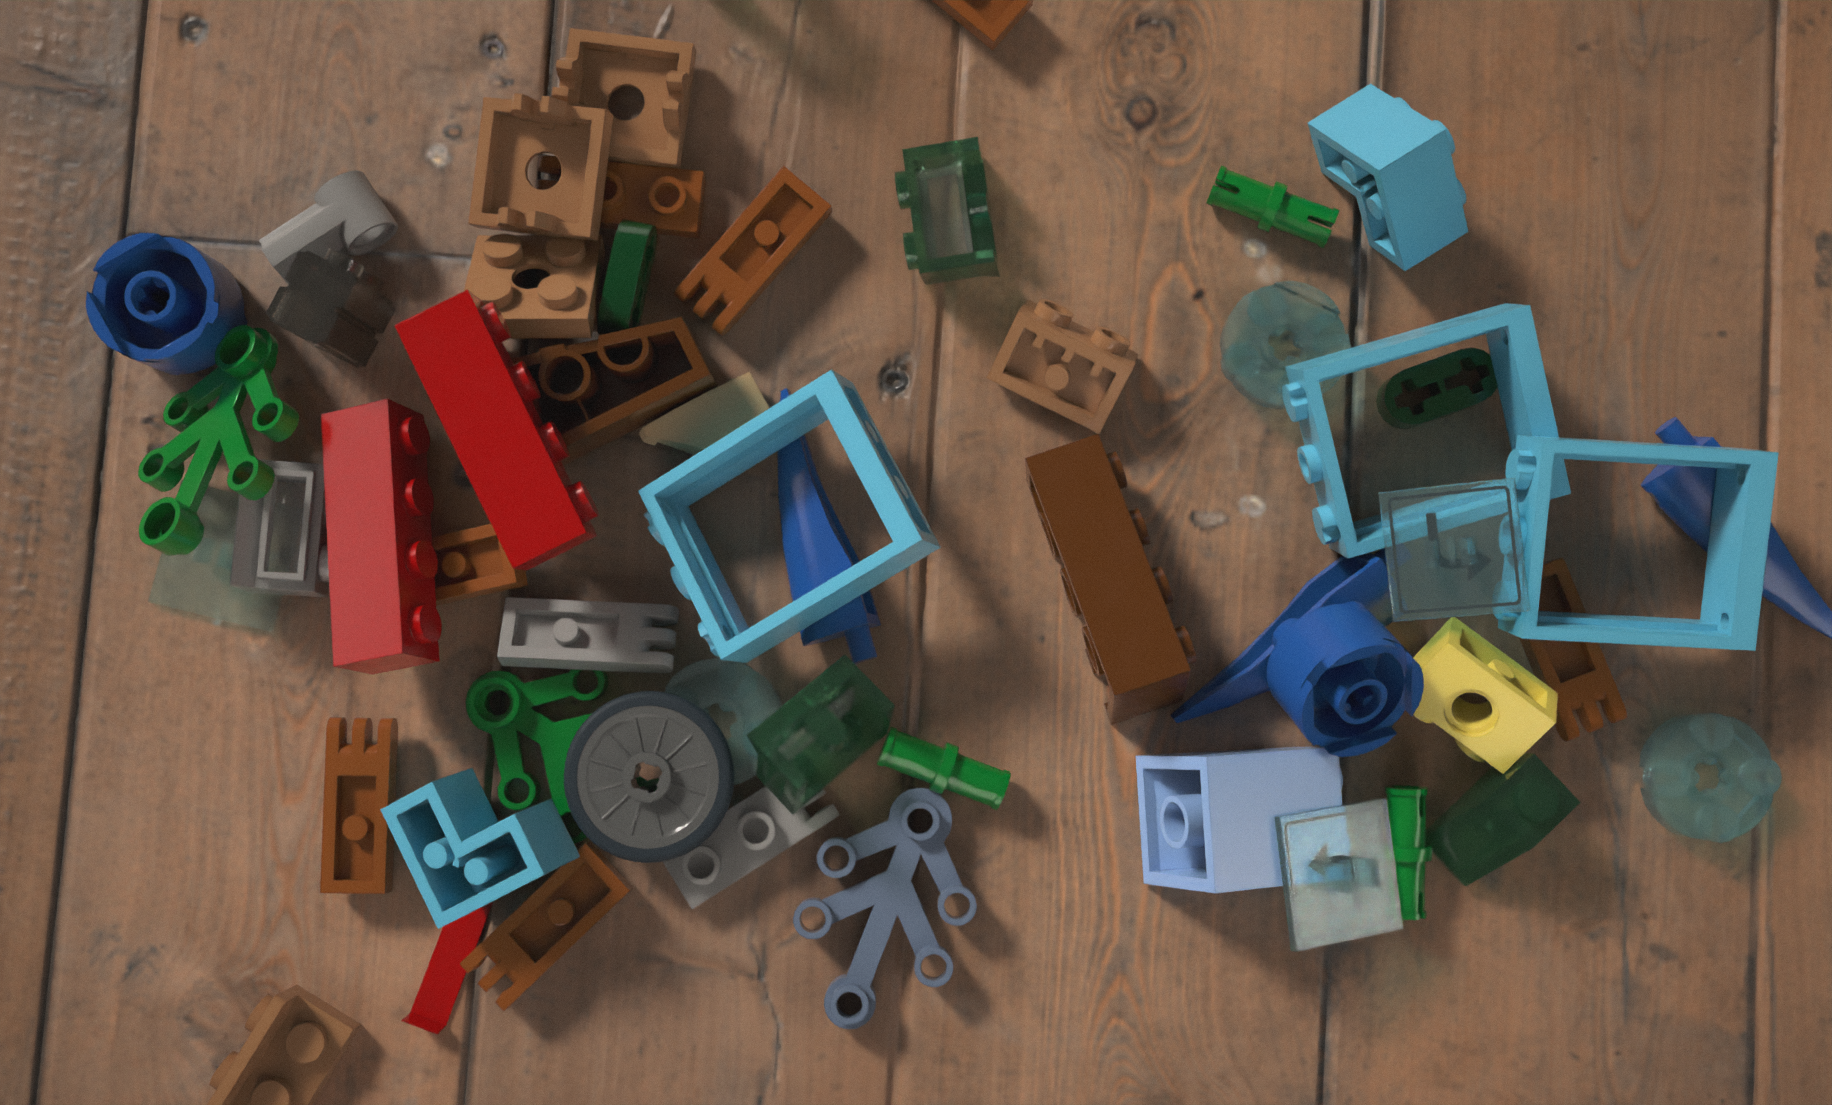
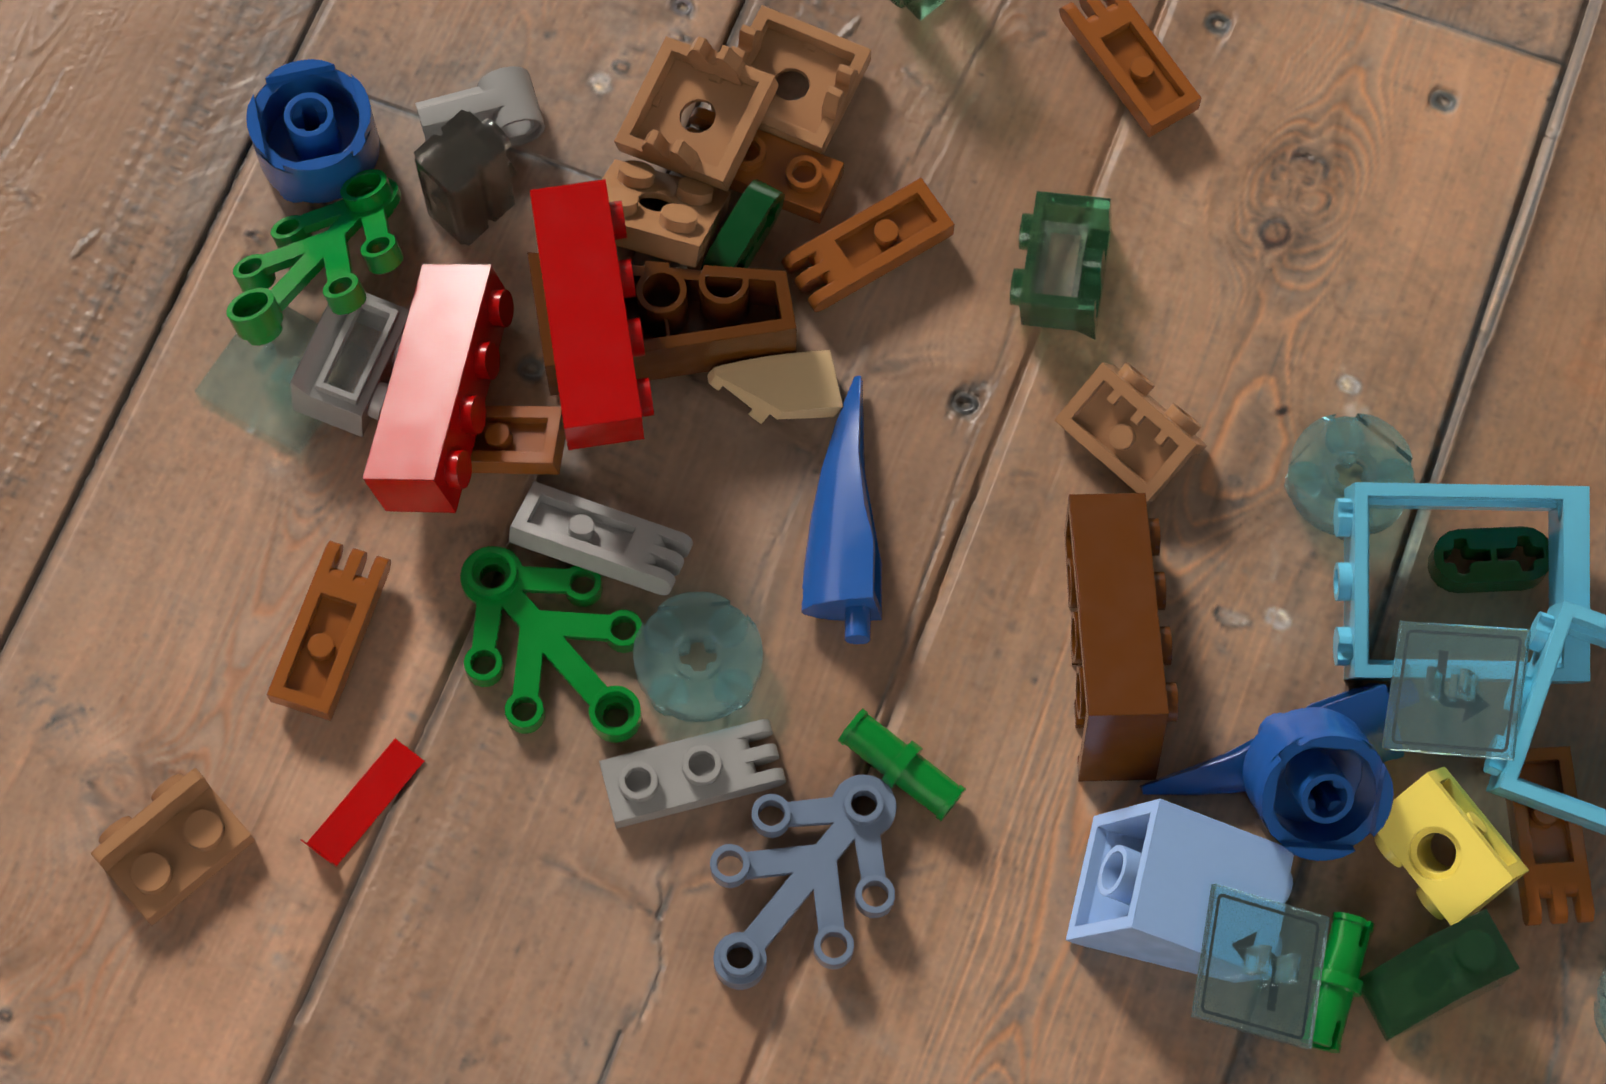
camera: 15 degrees right, 15 degrees down
(462, 850) = (424, 699): medium azure brick -> none
(549, 923) = (470, 794): dark orange hinge -> none
(690, 792) = (613, 720): dark grey wheel -> none
(695, 567) = (806, 410): medium azure window -> none
(820, 733) = (795, 685): clear green window -> none
(1272, 206) = (1375, 347): green pin -> none
(1397, 171) = (1500, 346): medium azure brick -> none

